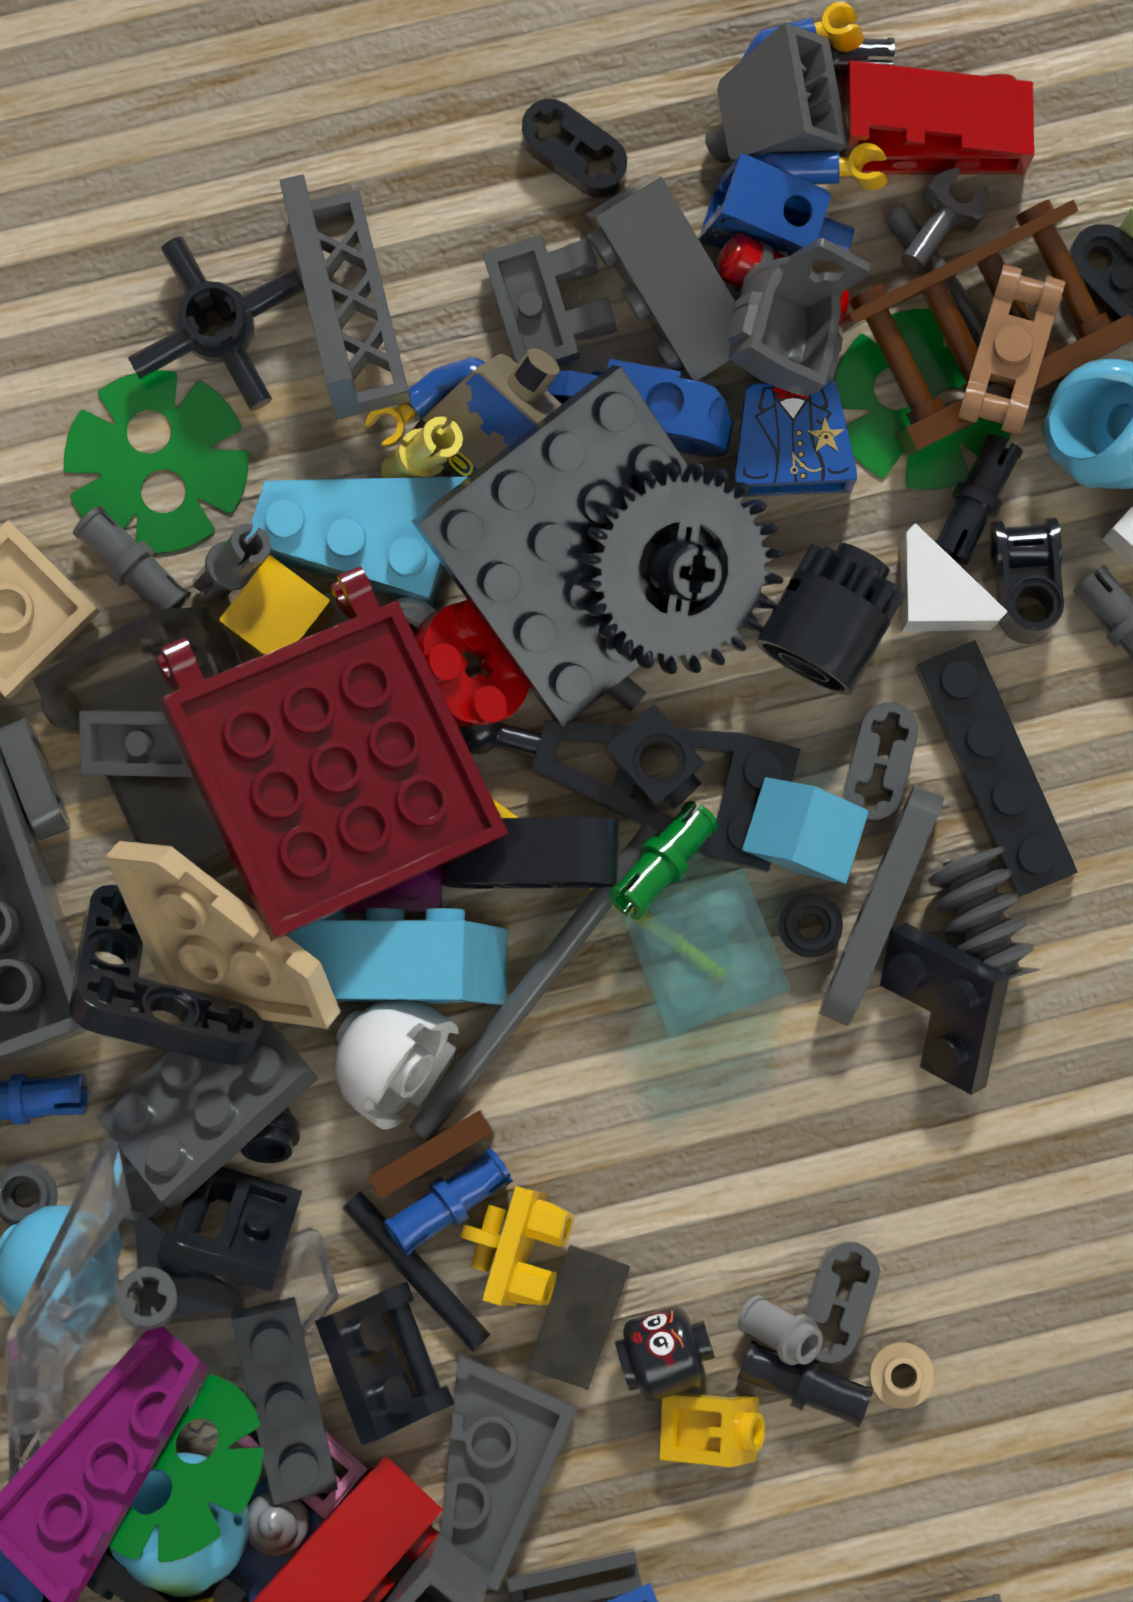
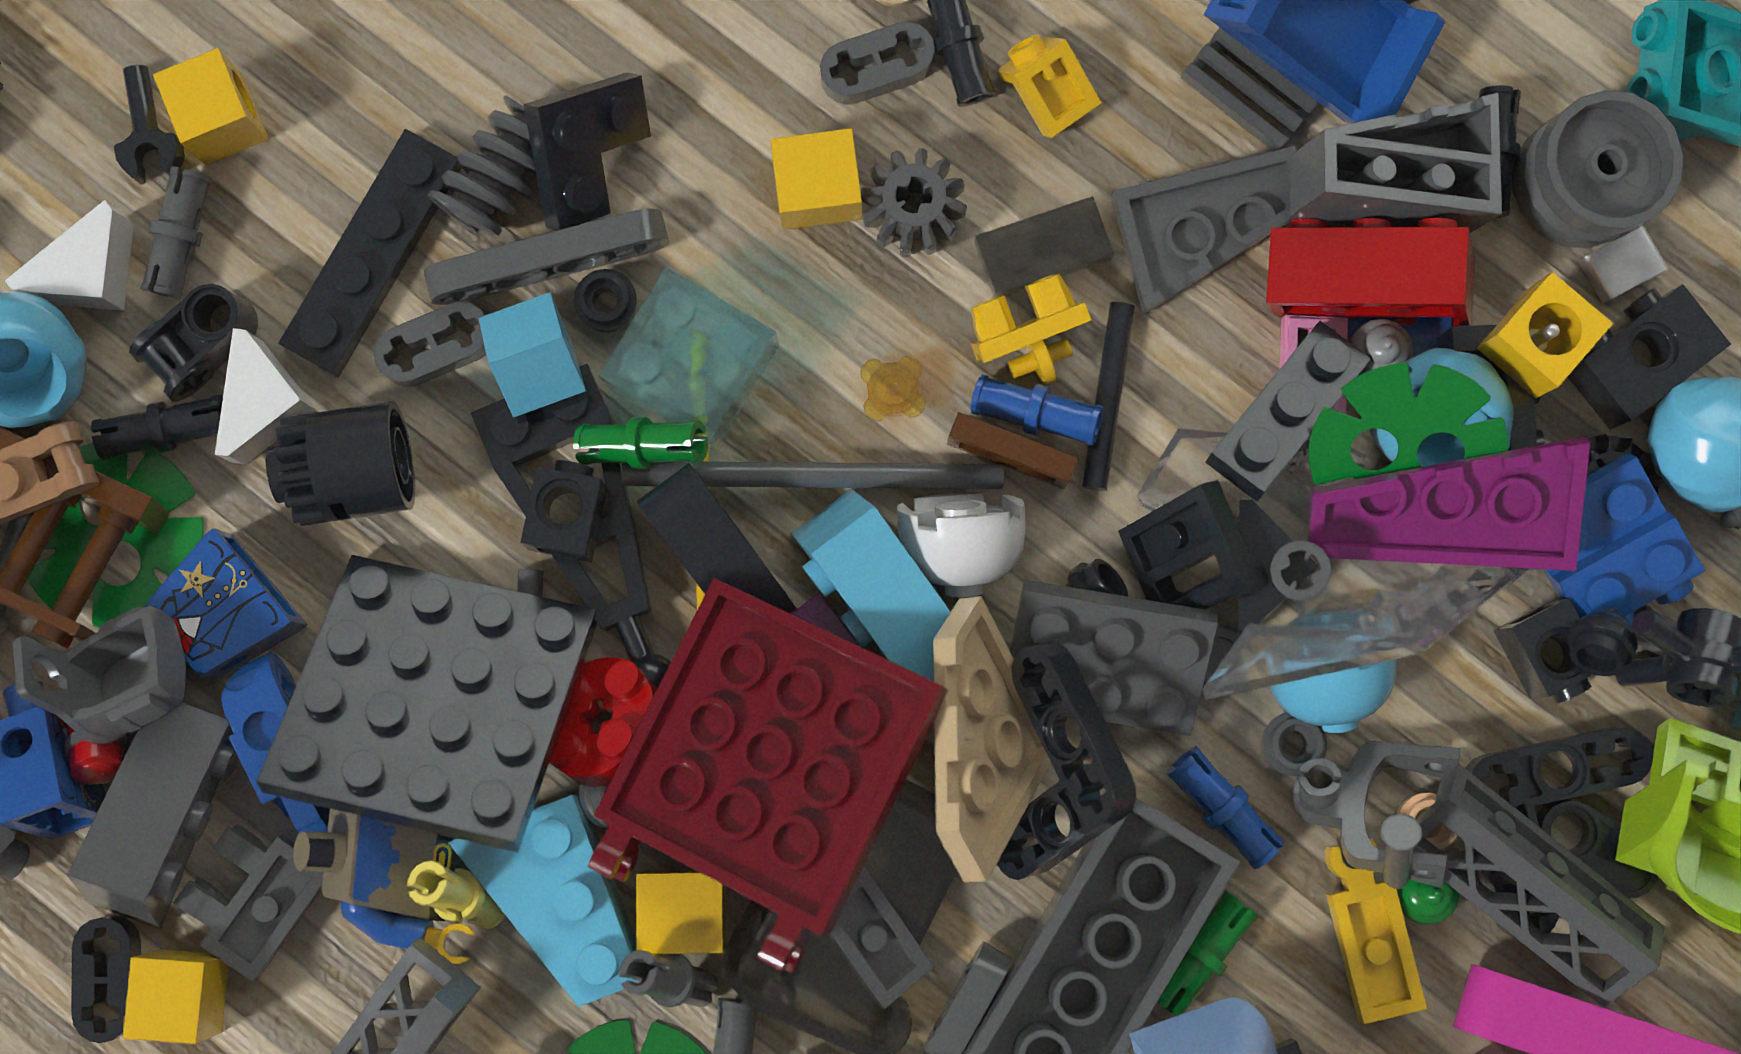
camera: 130 degrees left, 0 degrees up
(370, 1369) = (1211, 367): black plate -> none
(516, 189) = (175, 996): none -> yellow piece
(539, 1104) = (905, 401): none -> clear yellow plate
(664, 1353) = (1020, 157): black head -> none
(718, 1236) = (897, 186): none -> dark grey gear
(730, 584) = (391, 609): gear -> none
(776, 1171) = (816, 179): none -> yellow piece
(792, 1336) = (931, 70): light grey pin -> none

